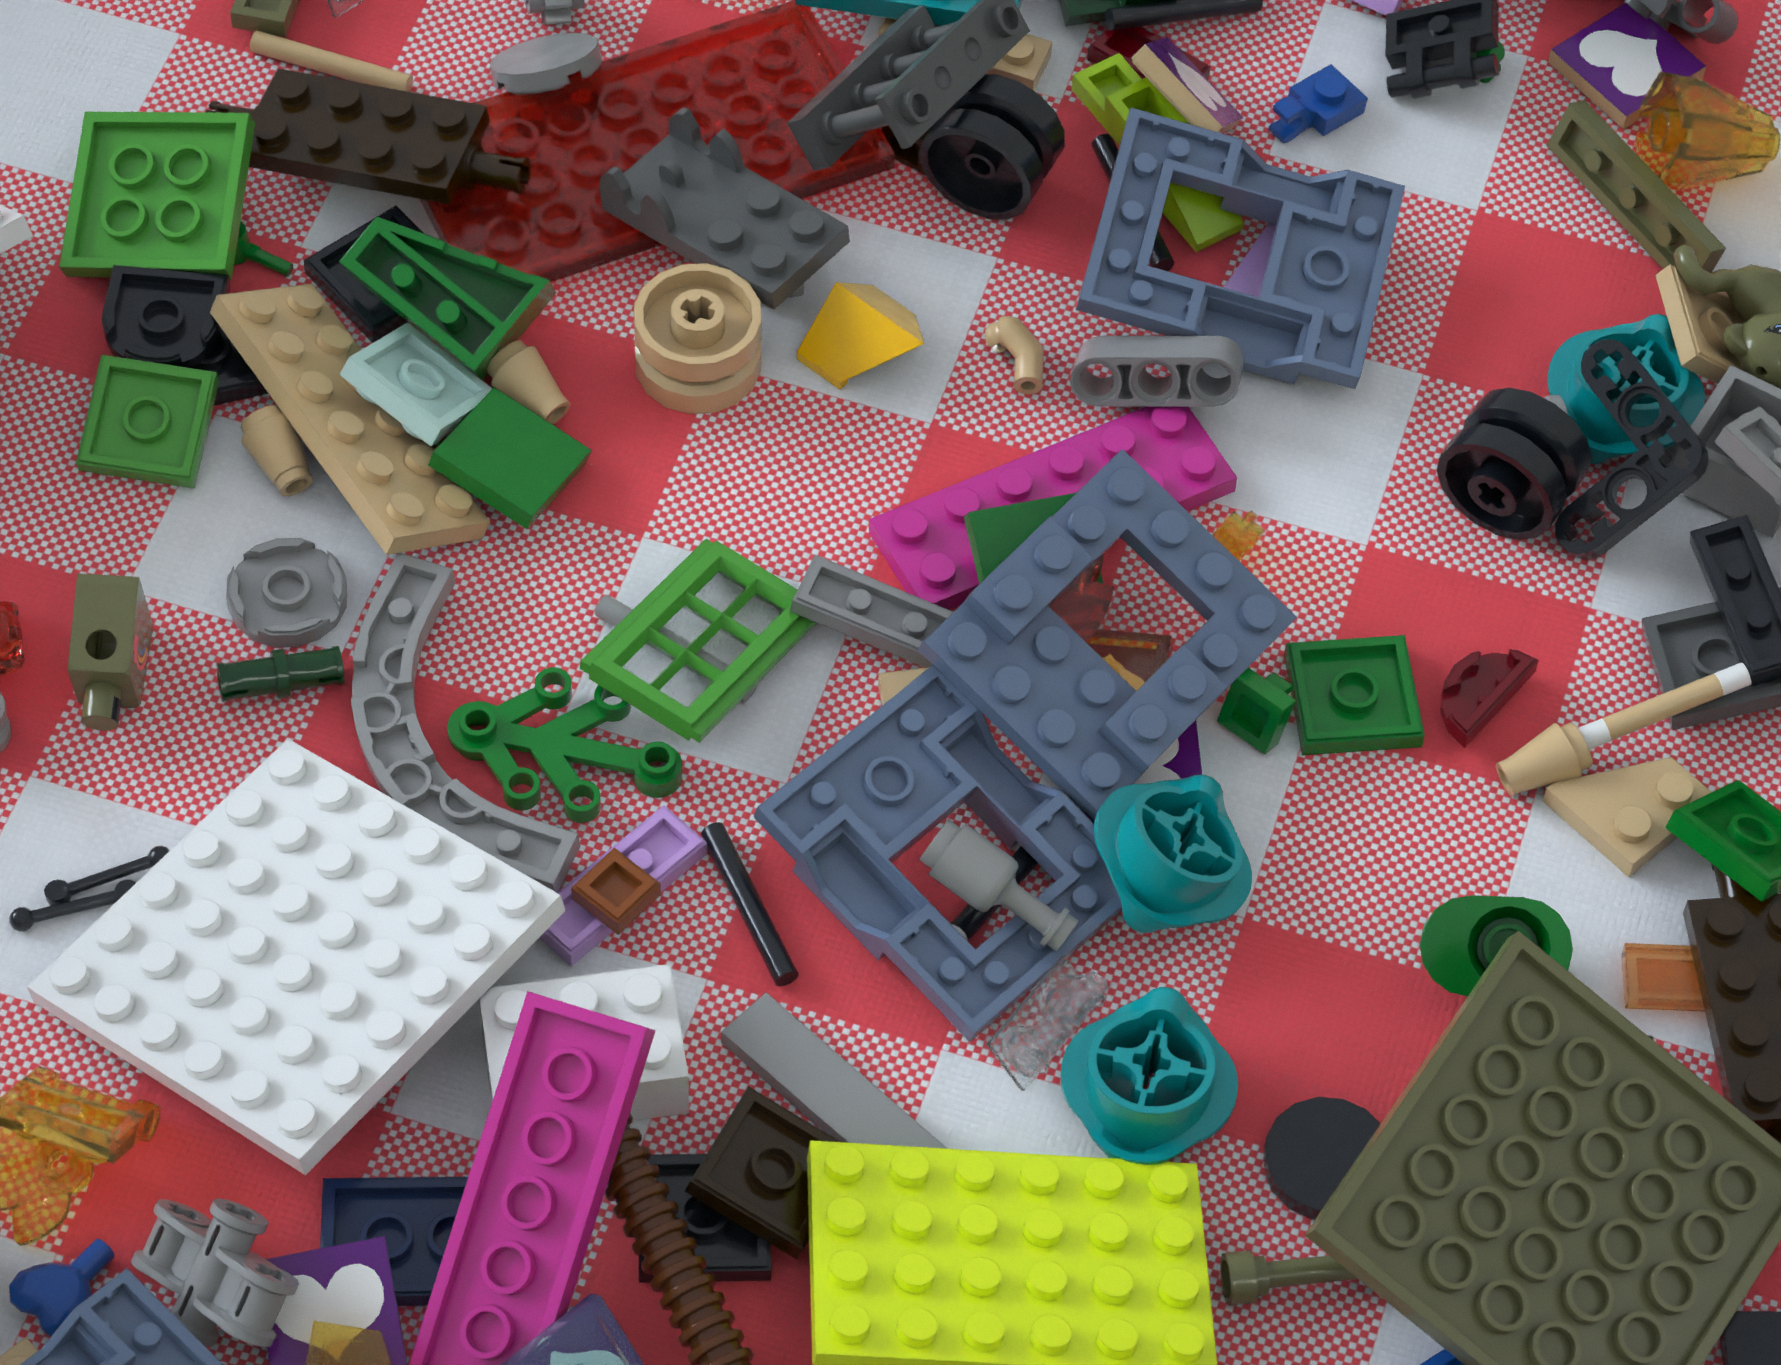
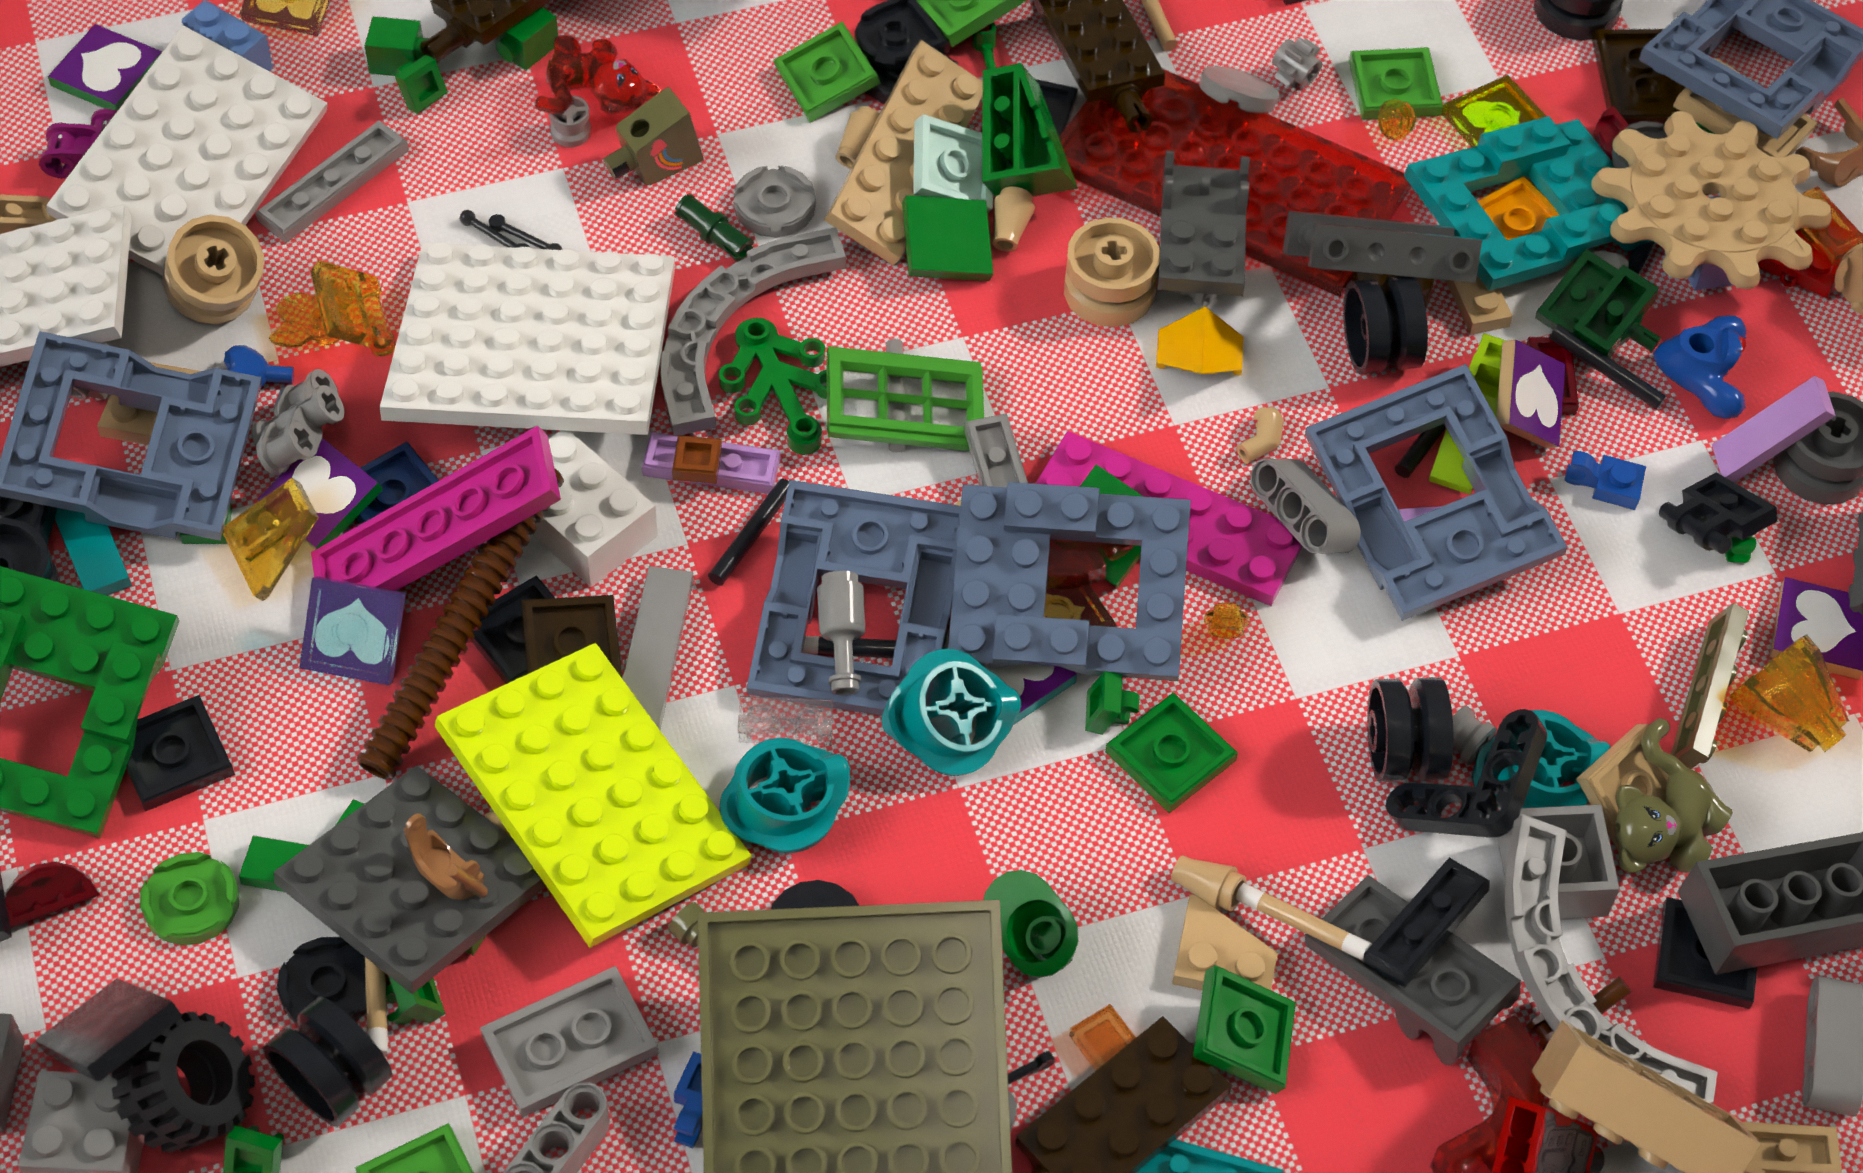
camera: 55 degrees right, 0 degrees up
(1480, 688) = (1233, 816): dark red plate -> none

